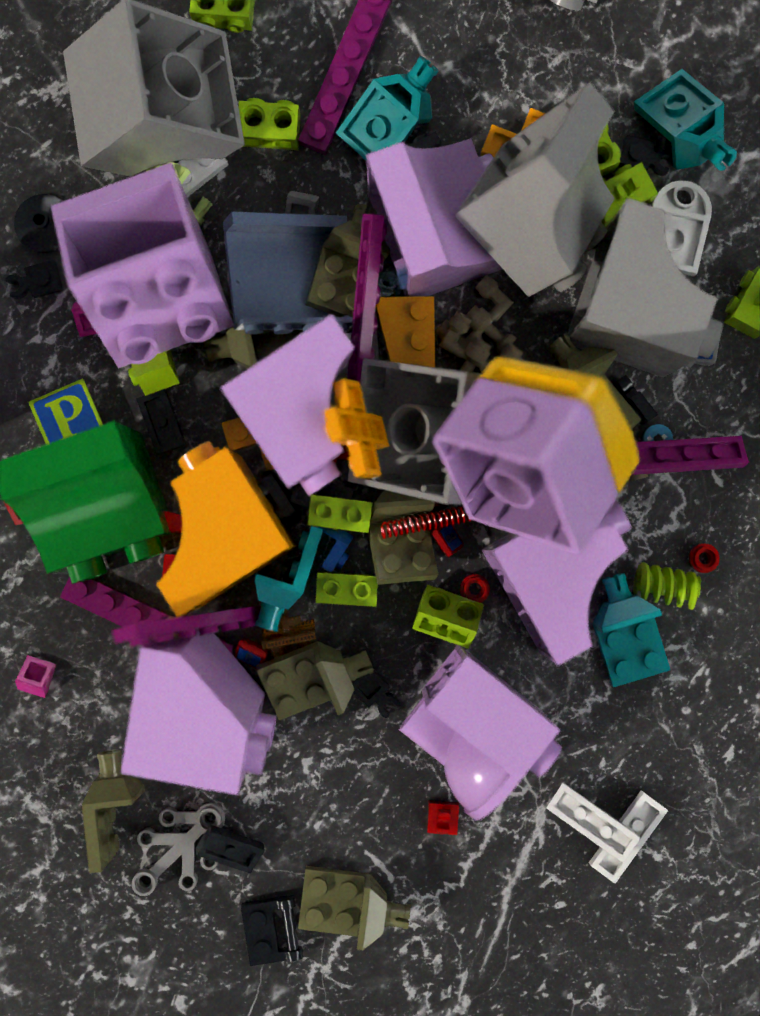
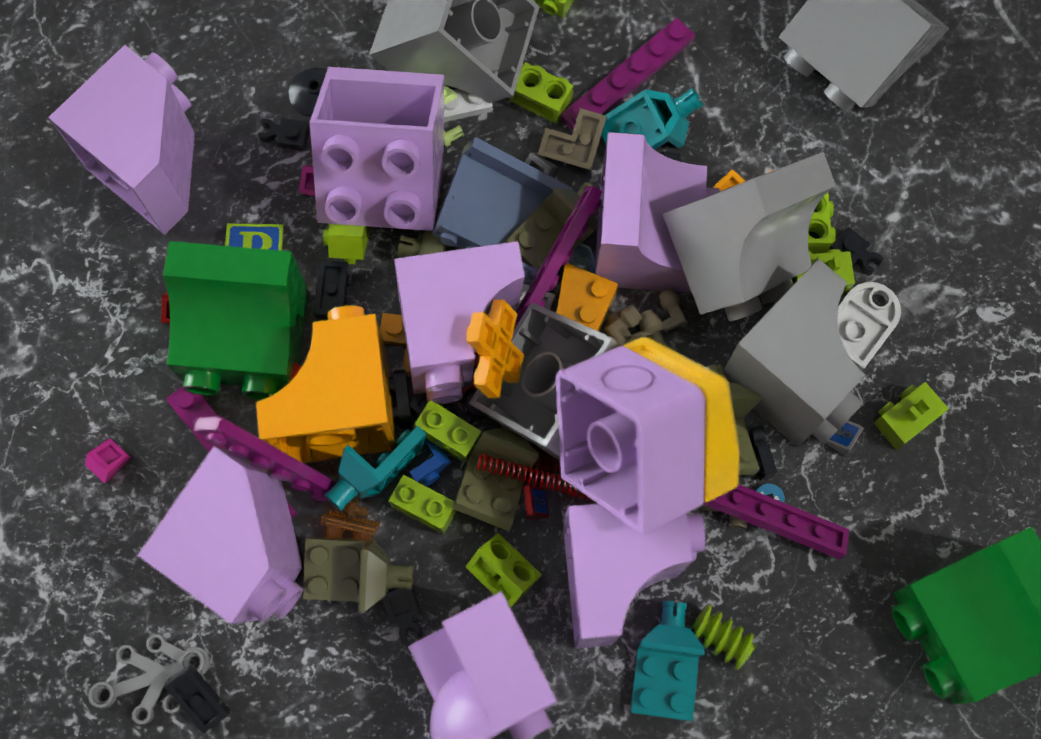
camera: 25 degrees right, 15 degrees down
(99, 810) = (96, 603): olive plate -> none
(250, 652) = (307, 524): red slope -> none
(333, 167) = (579, 147): none -> dark tan plate
(481, 581) = (543, 550): red plate -> none
(689, 119) = (908, 237): teal plate -> none
(712, 554) = (777, 624): red plate -> none

